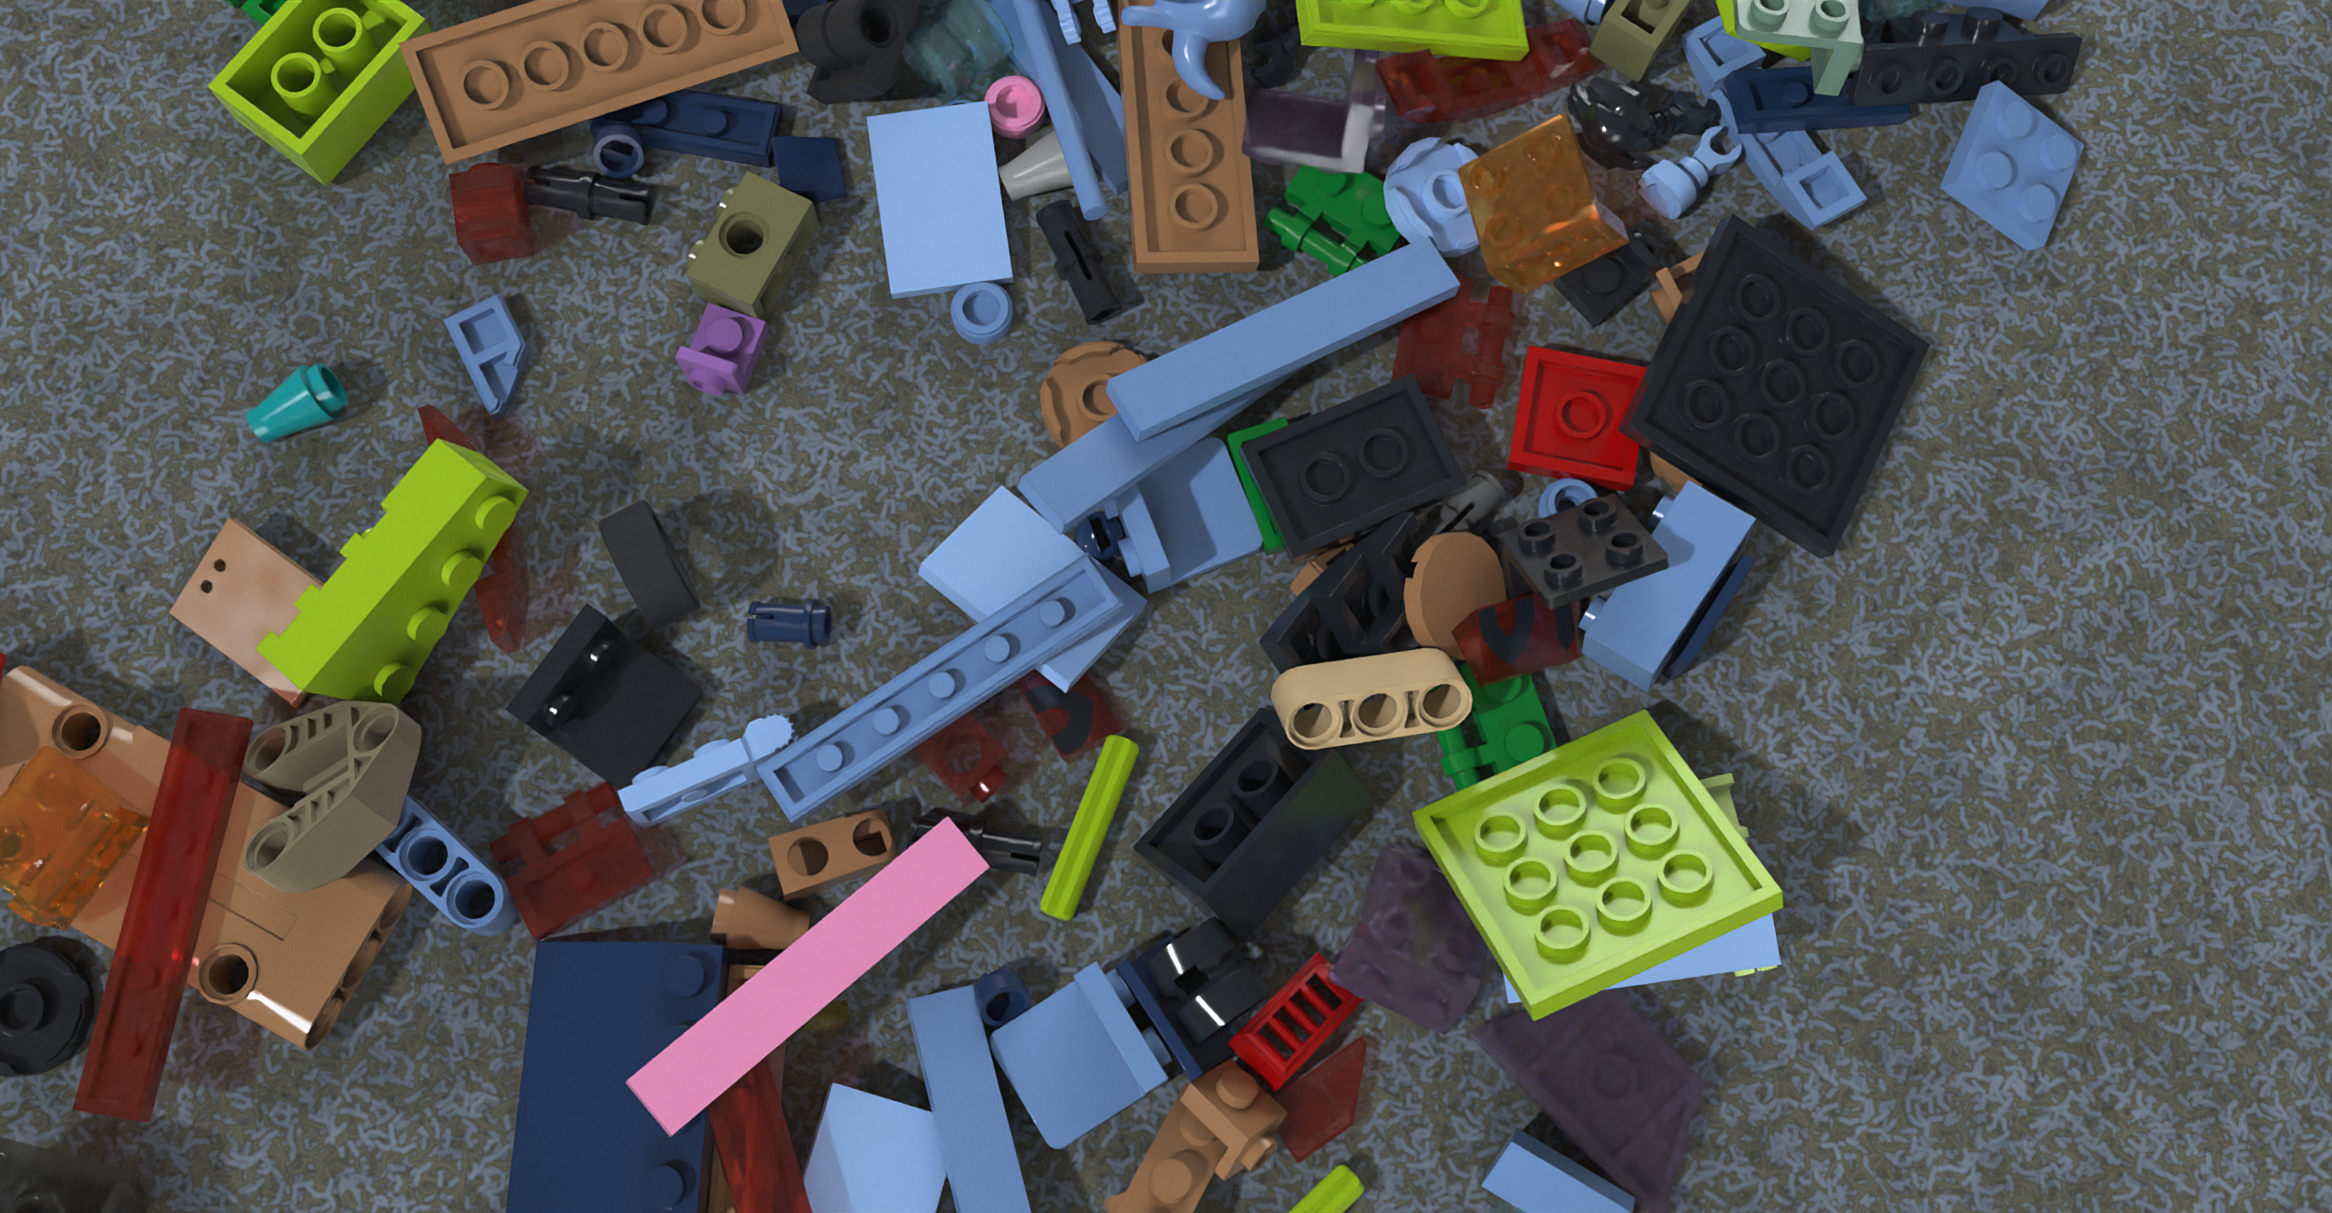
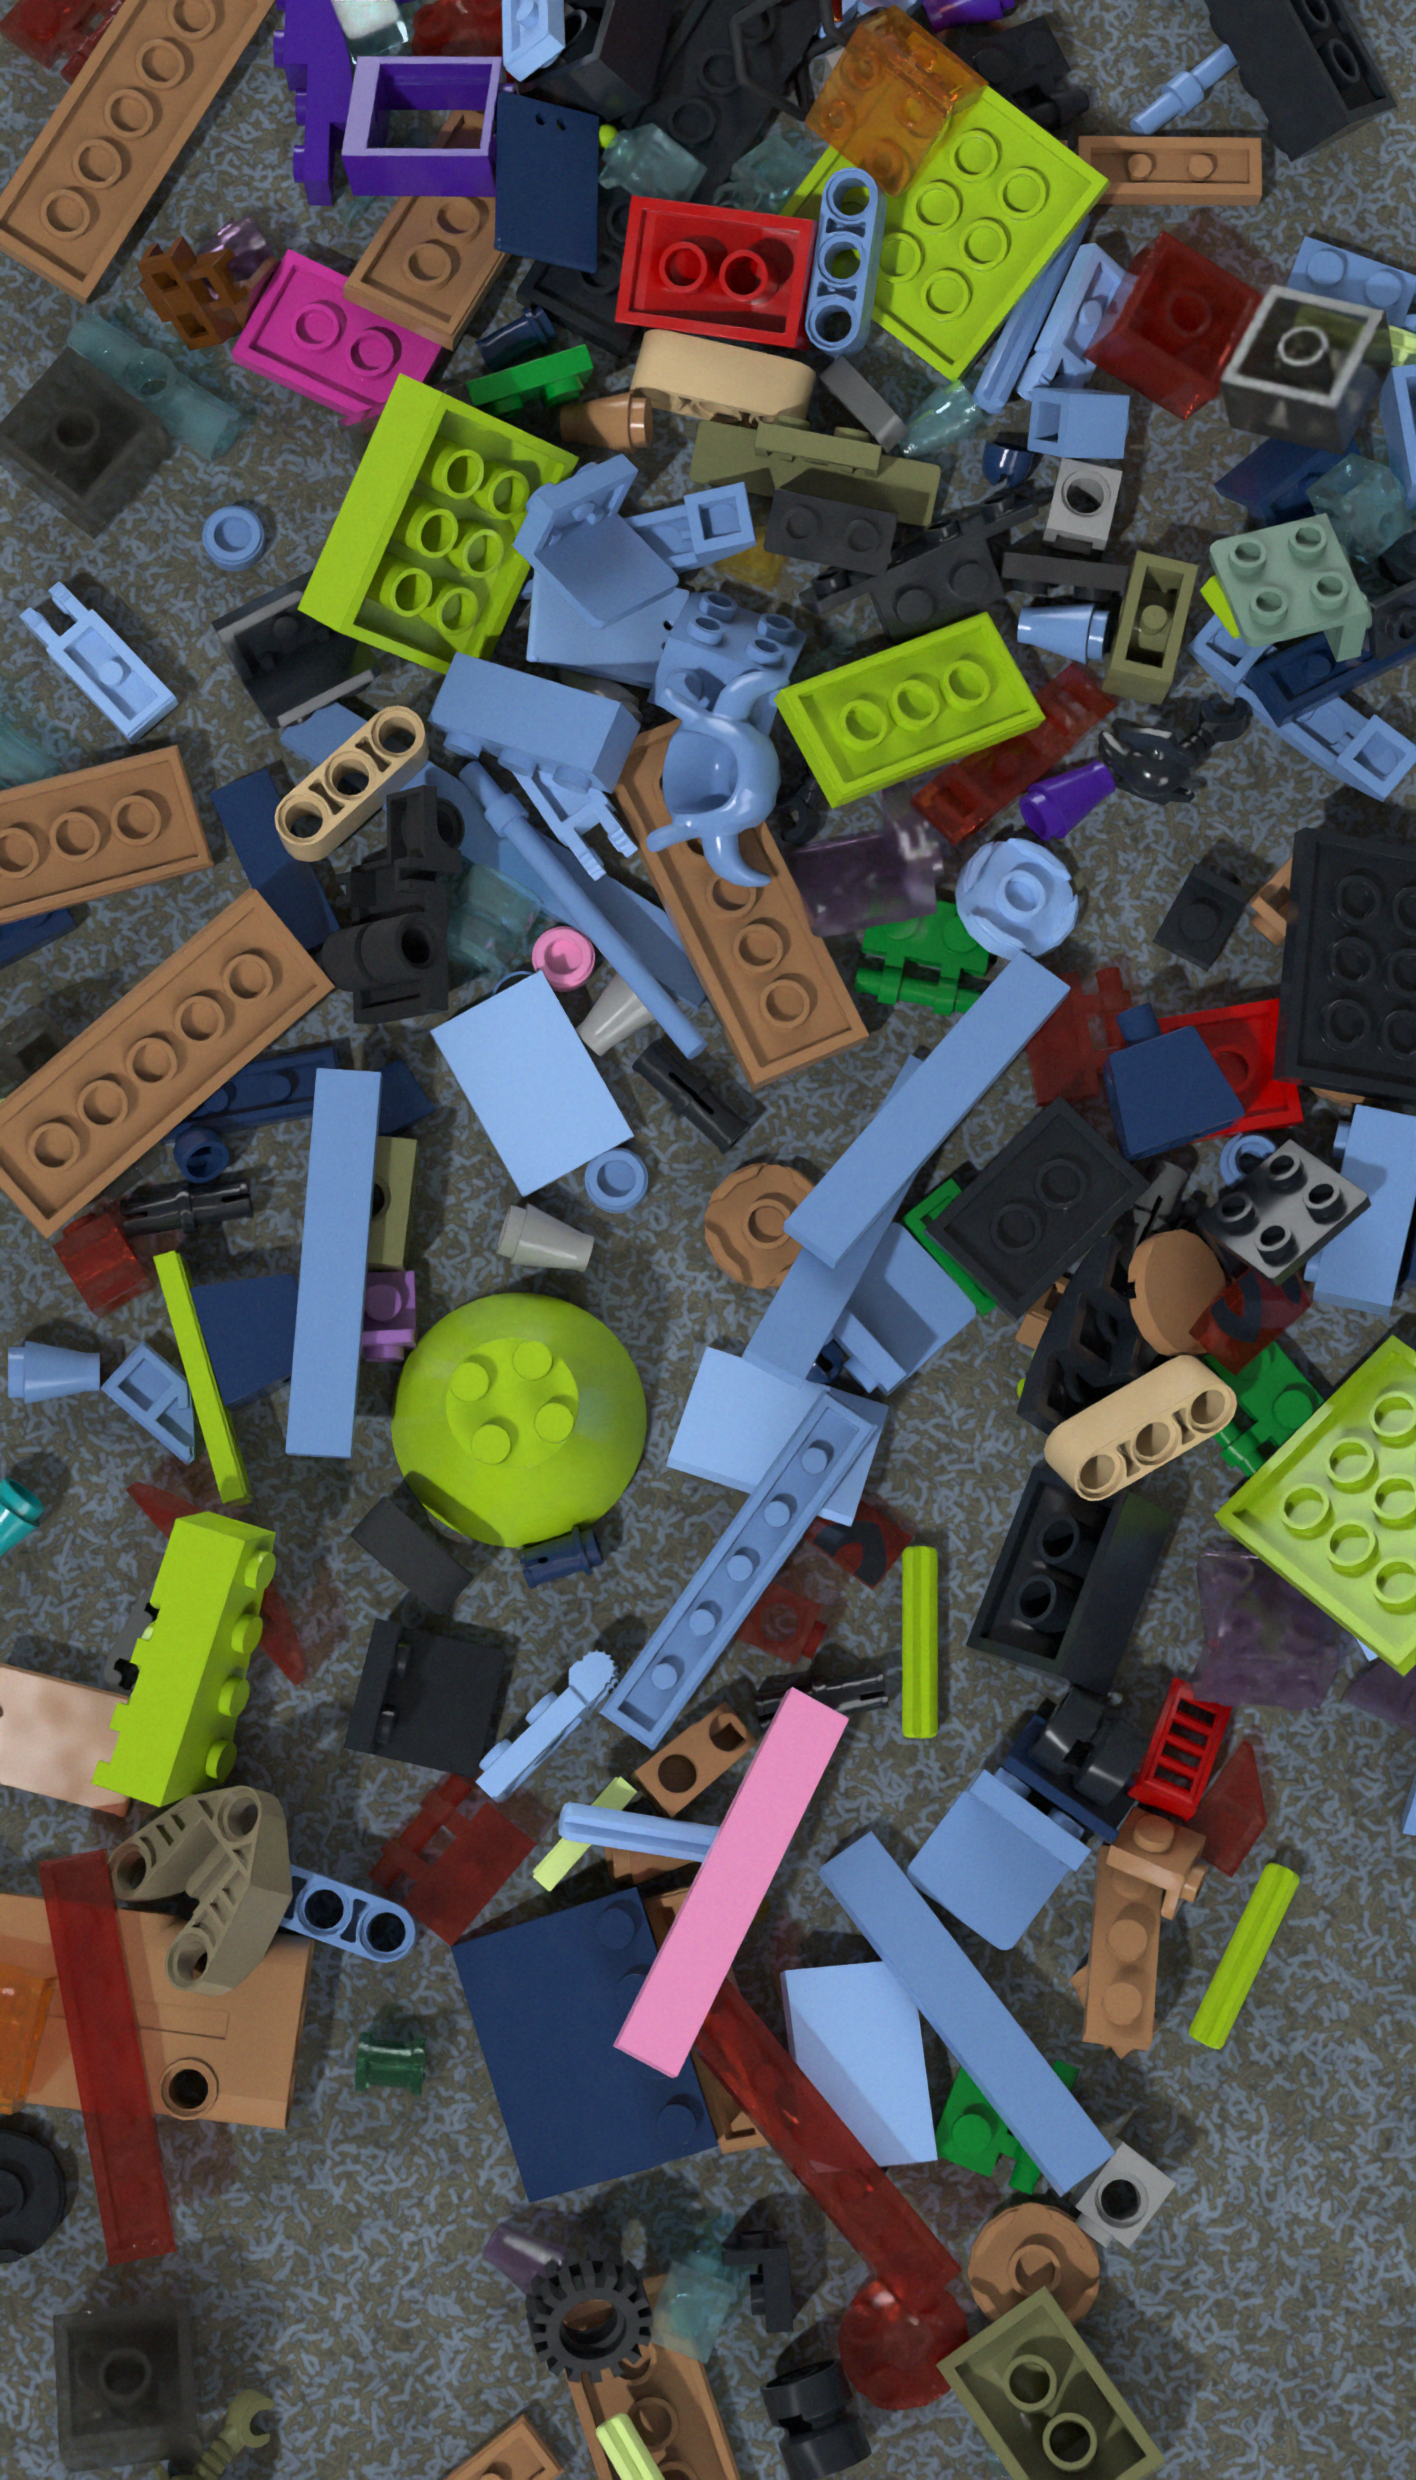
camera: 20 degrees left, 5 degrees up
(402, 288) = (50, 1372): none -> medium blue cone
(431, 1027) = (391, 2063): none -> clear green bush
(535, 345) = (208, 1401): none -> lime tile
(606, 325) = (249, 1334): none -> dark blue torso
(688, 280) = (334, 1264): none -> medium blue tile
(701, 882) = (567, 1853): none -> yellowish green tile
(741, 892) = (635, 1832): none -> light blue axle
(805, 489) = (518, 1419): none -> lime cone
(890, 336) = (542, 1241): none -> light grey cone
(1007, 1009) = (902, 1831): dark blue hinge -> none
(1508, 121) = (1064, 800): none -> dark purple cone
(1514, 404) = (1164, 1088): none -> dark blue torso
(1538, 207) = (1113, 882): clear orange bracket -> none
(1674, 187) = (1233, 802): light blue piece -> none

